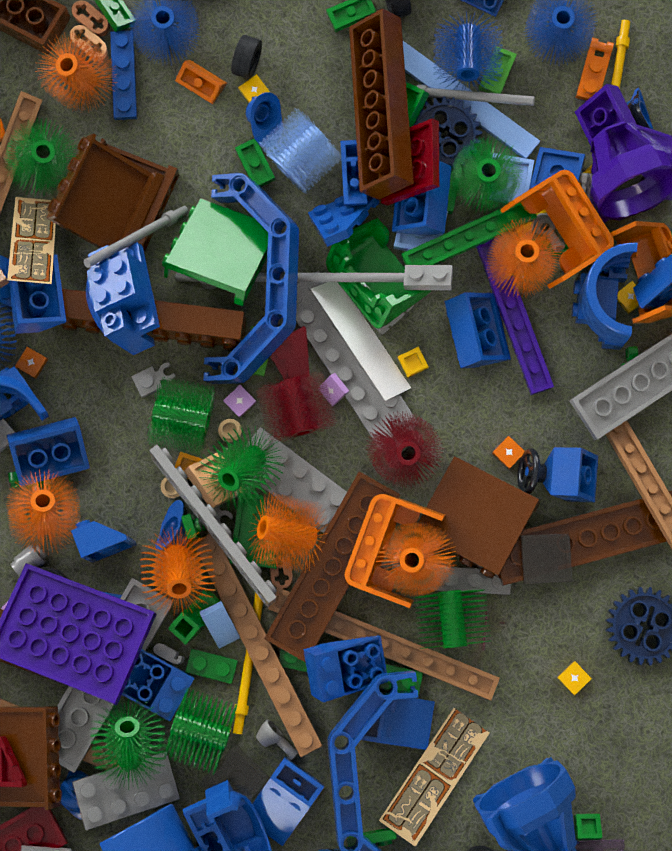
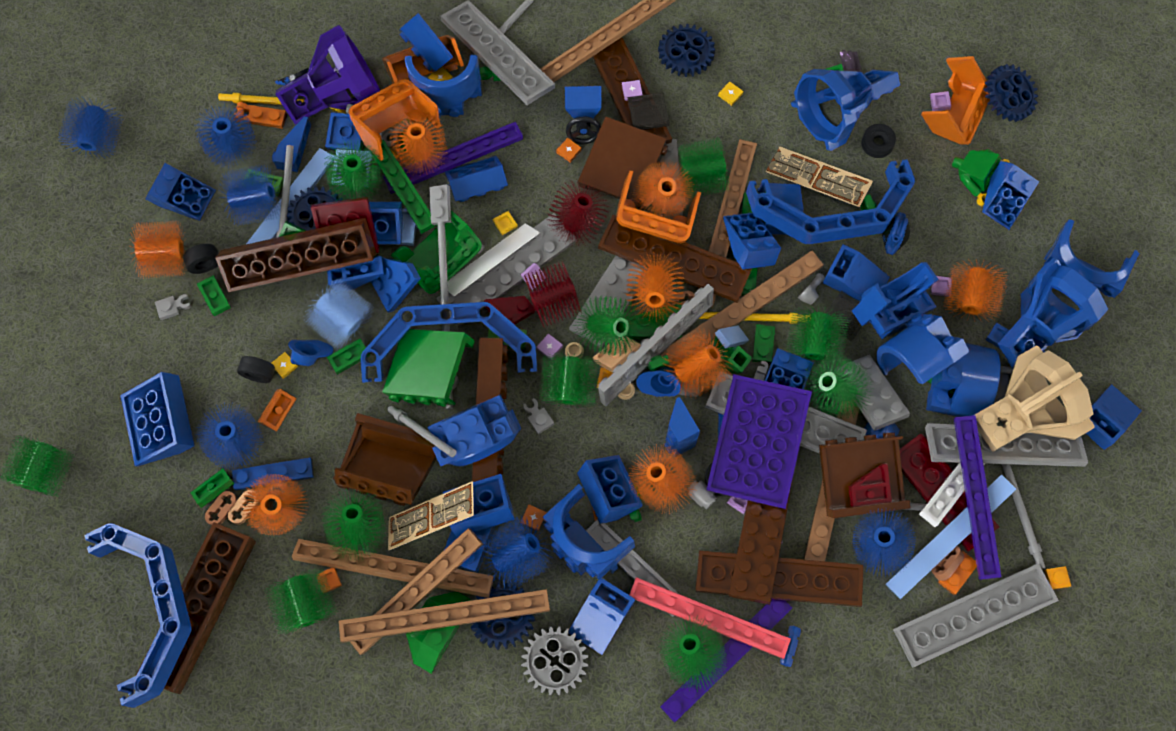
camera: 100 degrees left, 10 degrees down
(545, 109) = (296, 137): none -> blue slope
(581, 541) = (631, 89): none -> lavender tile

